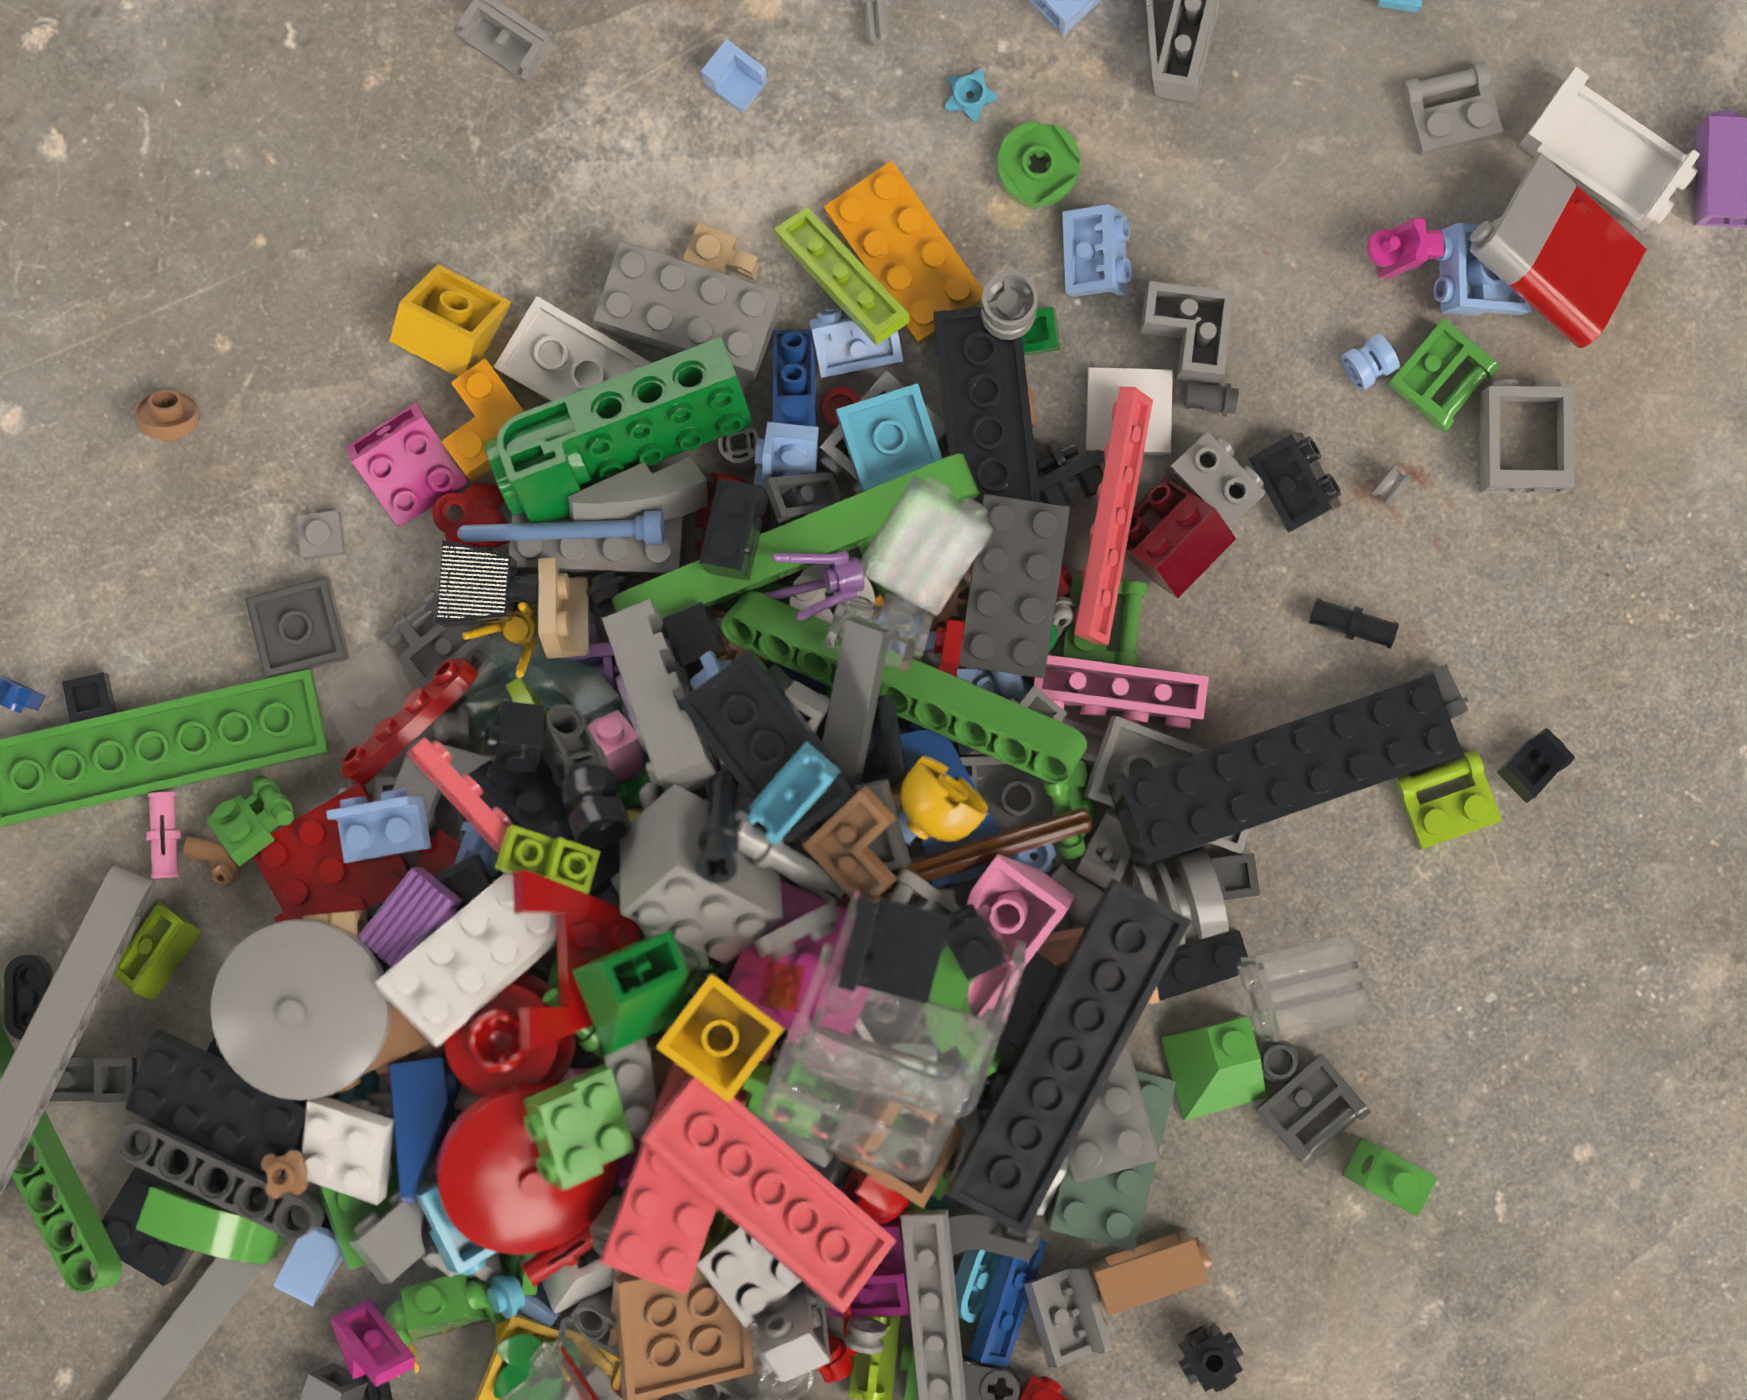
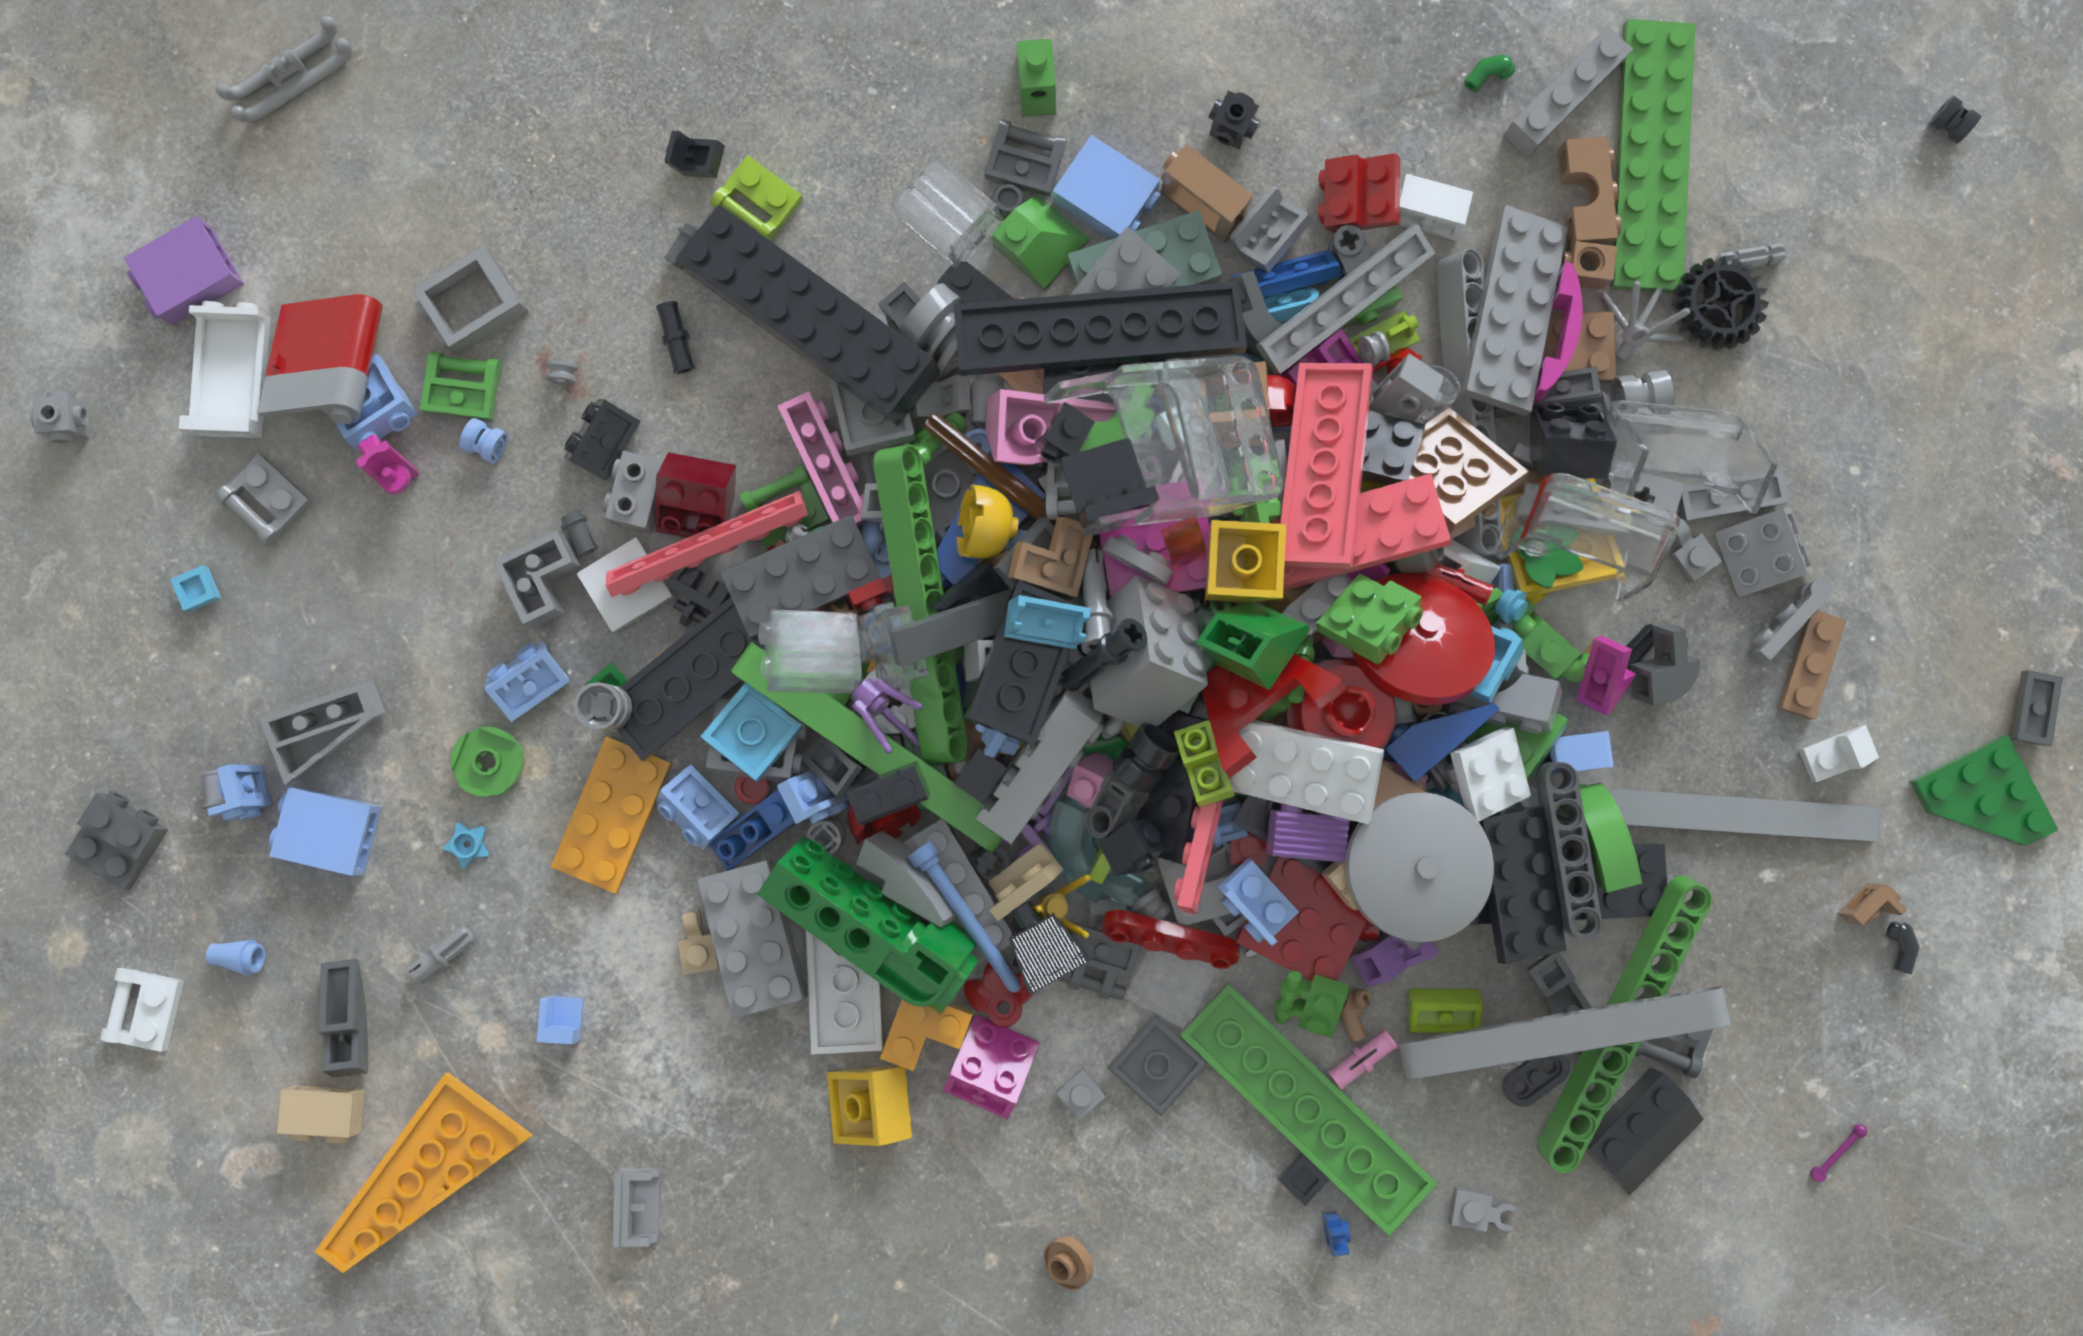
camera: 125 degrees left, 0 degrees up
(239, 917) = (1388, 957): none -> medium lavender brick
(296, 1173) = (1526, 802): medium nougat plate -> none
(842, 275) = (657, 844): lime plate -> none
(1220, 1171) = (1106, 189): none -> light blue brick

